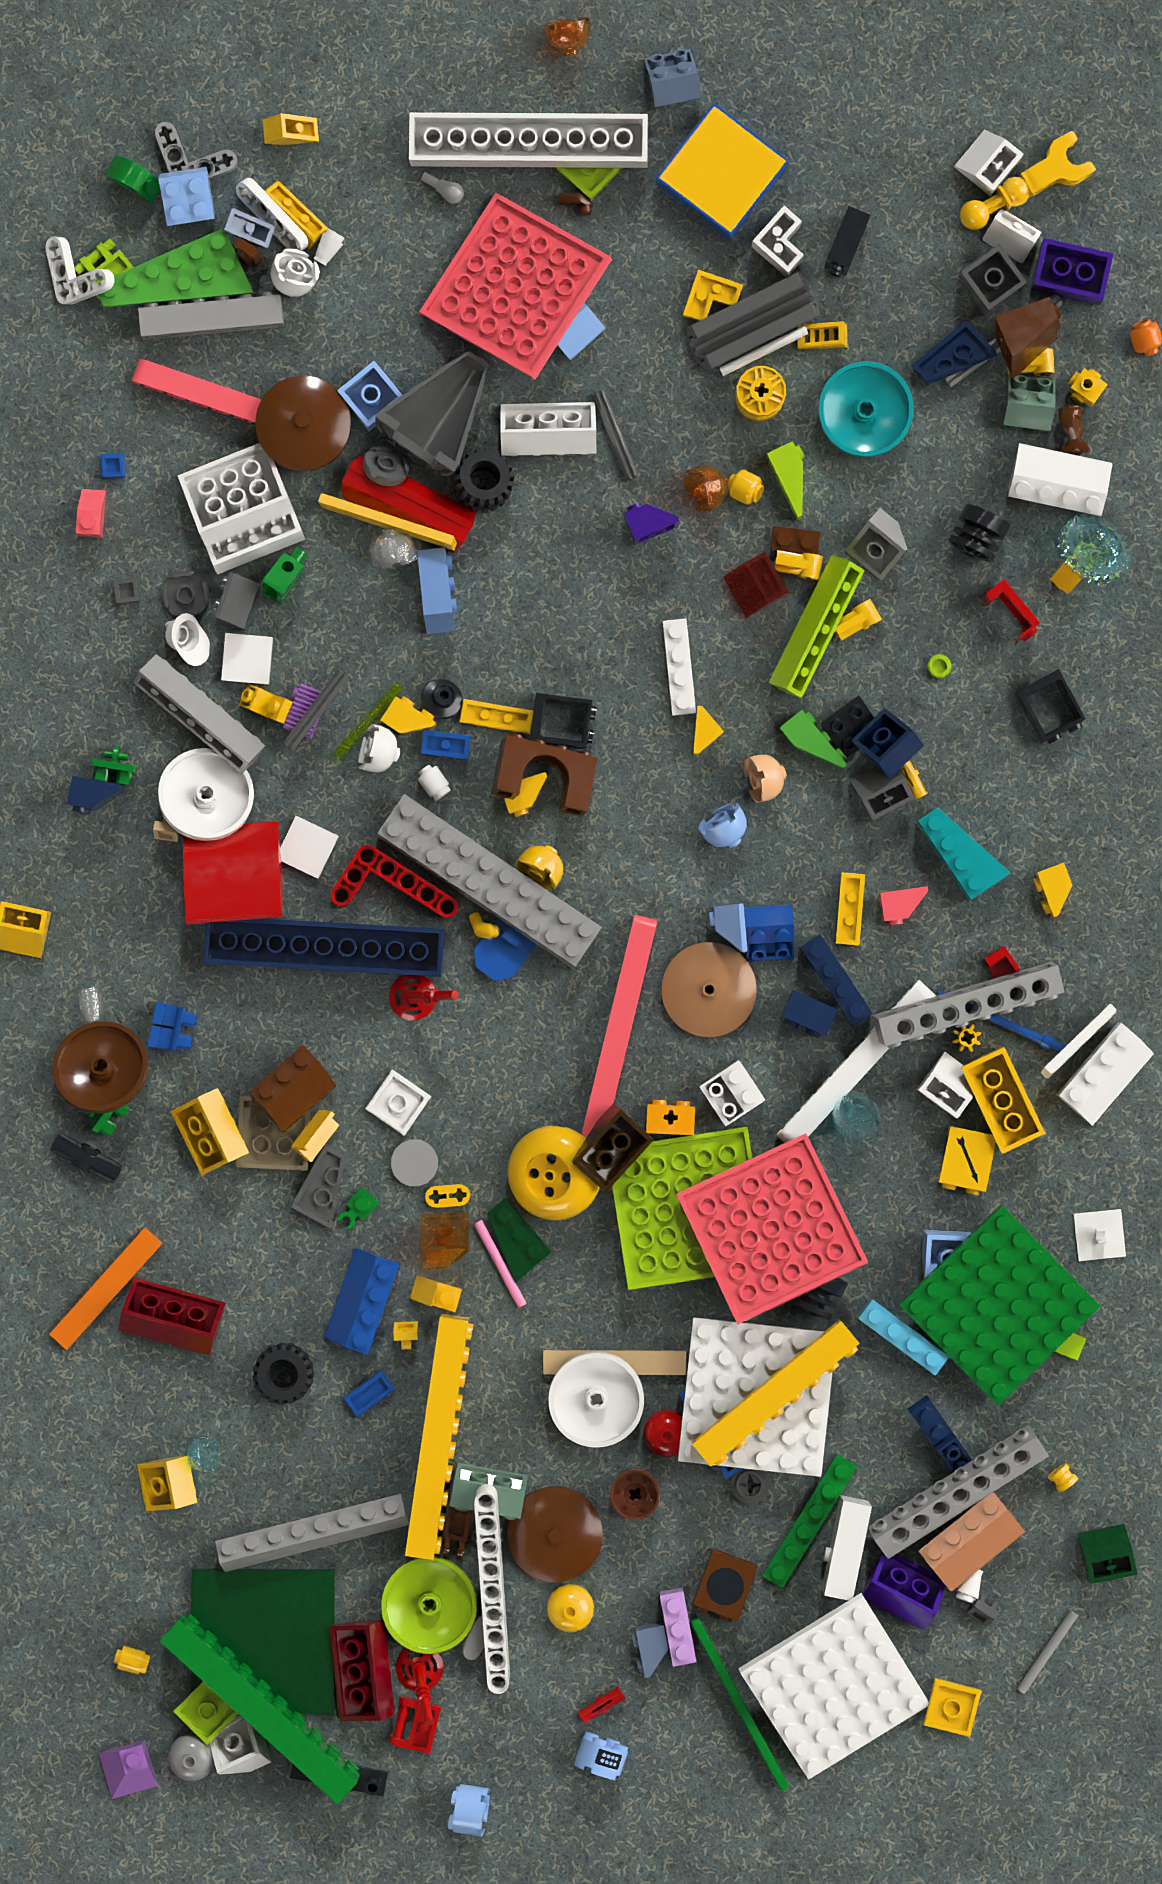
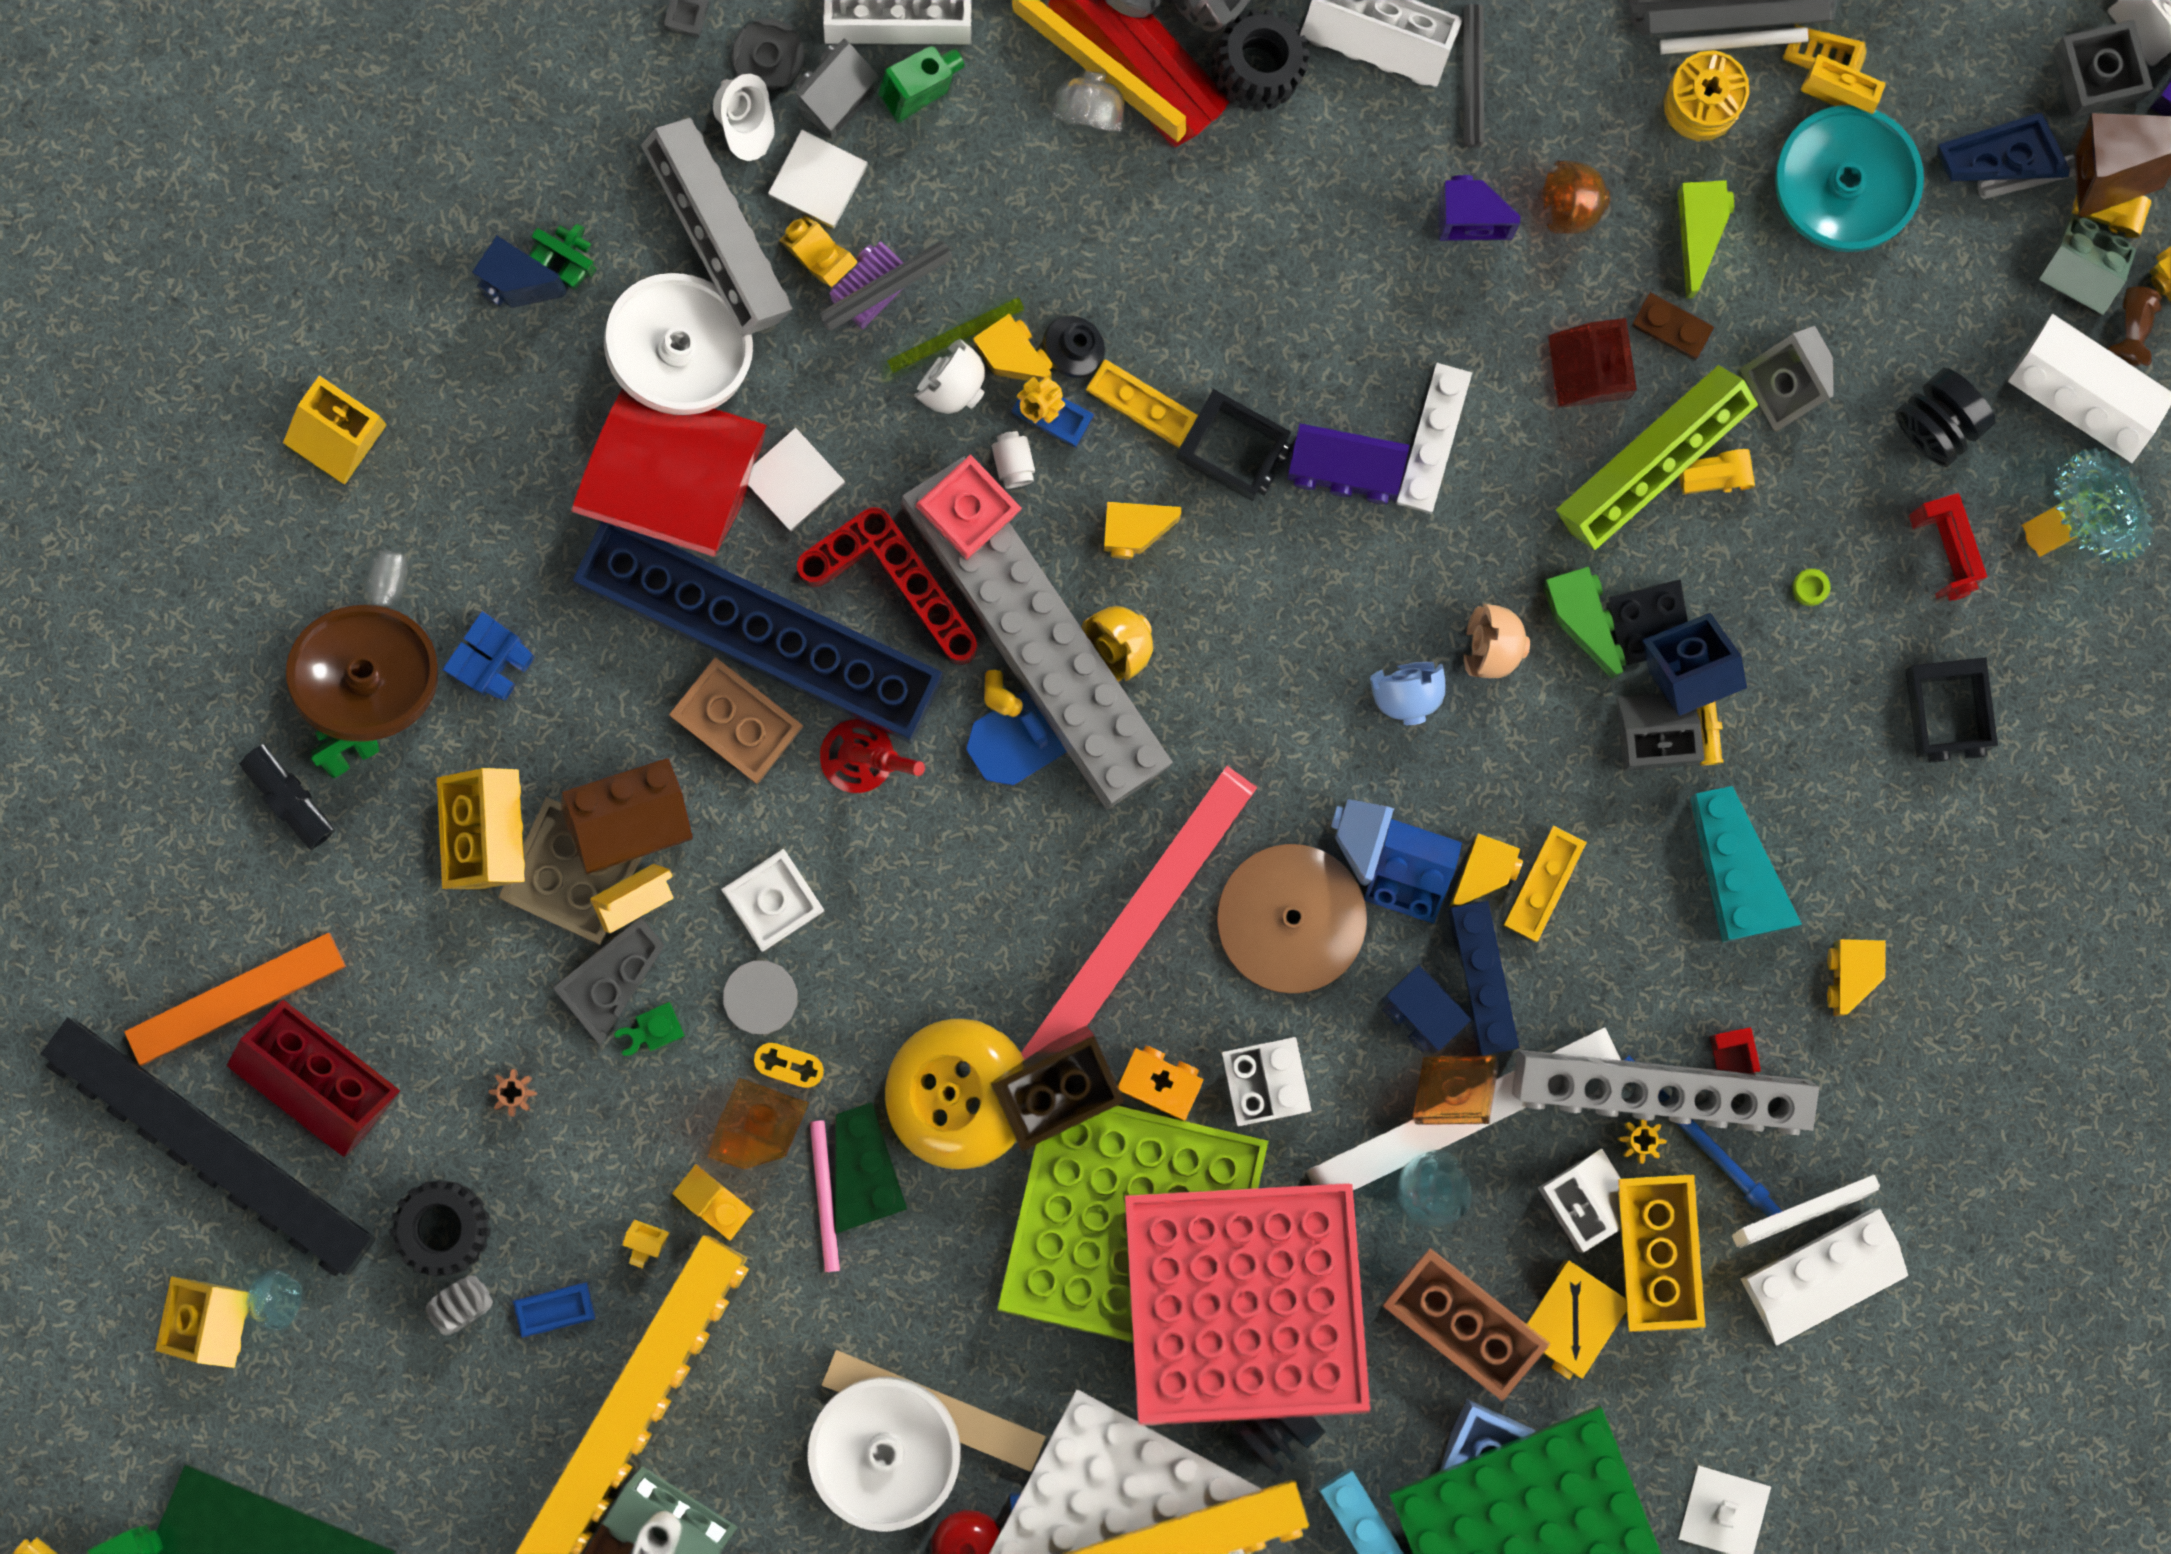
camera: 15 degrees right, 5 degrees down
(126, 1380) = (208, 1147): none -> black brick
(164, 831) = (598, 375): tan tile -> none
(289, 1283) = (519, 1100): none -> nougat gear
(312, 1532) = (384, 1482): light grey brick -> none
(313, 1413) = (459, 1305): none -> light grey gear
(332, 1005) = (736, 720): none -> medium nougat plate
(362, 1300) = (600, 1168): blue slope -> none
(419, 824) = (968, 507): none -> coral tile
(436, 590) = (1128, 189): medium blue wedge -> none
(436, 741) = (1041, 400): none -> yellow gear
(575, 769) = (1225, 518): reddish brown arch -> none
(633, 706) = (1347, 463): none -> dark purple slope
(705, 730) = (1437, 544): yellow slope -> none
(745, 487) = (1632, 220): yellow head -> none
(802, 565) = (1671, 364): yellow piece -> none
(812, 914) = (1486, 869): none -> yellow slope
(840, 353) = (1842, 85): none -> yellow panel
(845, 1053) = (1455, 1090): none -> clear orange tile
(900, 904) = (1620, 905): coral slope -> none
(904, 1188) = (1465, 1323): none -> nougat slope

